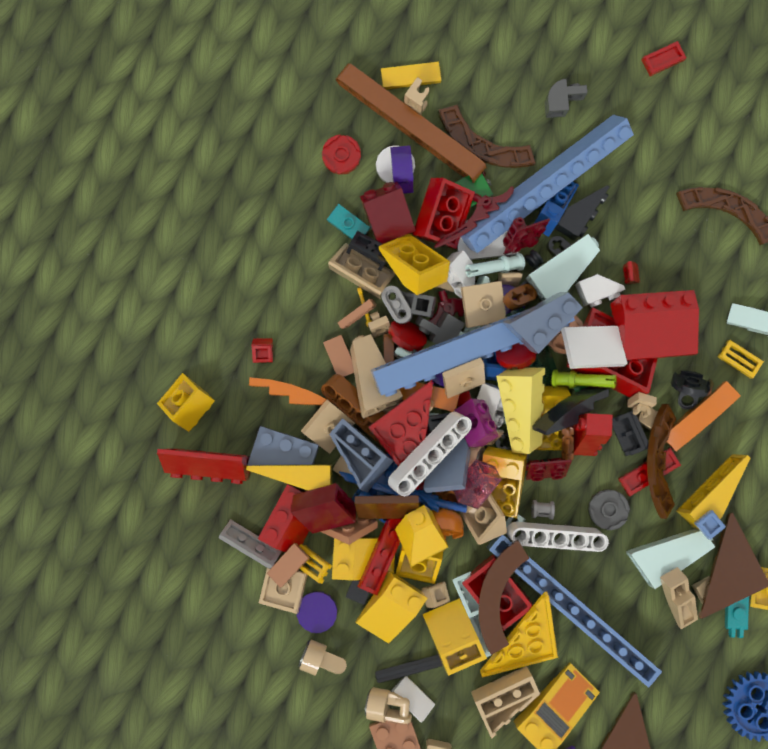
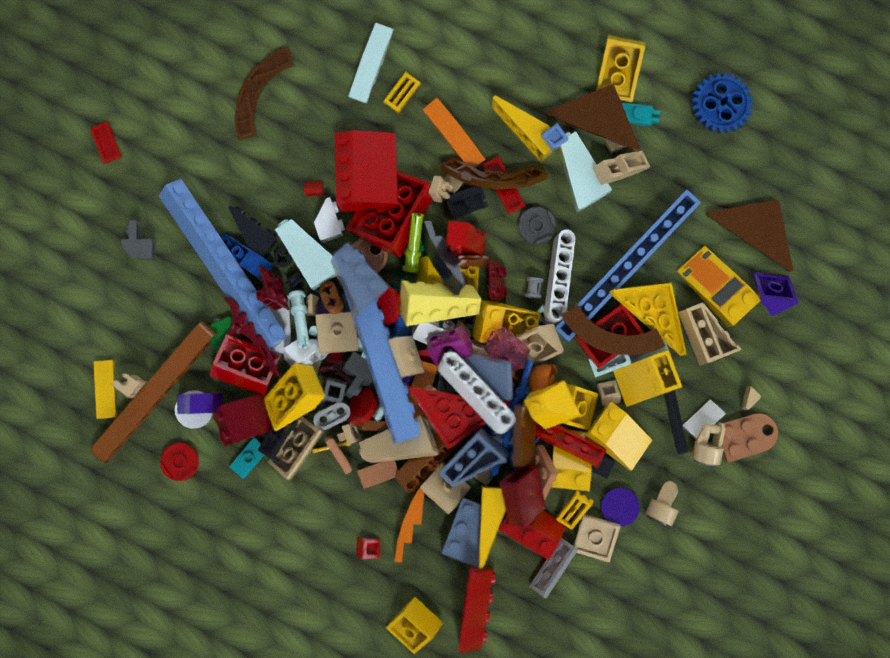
camera: 85 degrees left, 0 degrees up
(288, 565) = (575, 532): nougat tile -> none
(485, 150) = (181, 326): reddish brown tile -> none
(593, 347) = (384, 232): white tile -> none
(691, 384) = (424, 140): black tile -> none

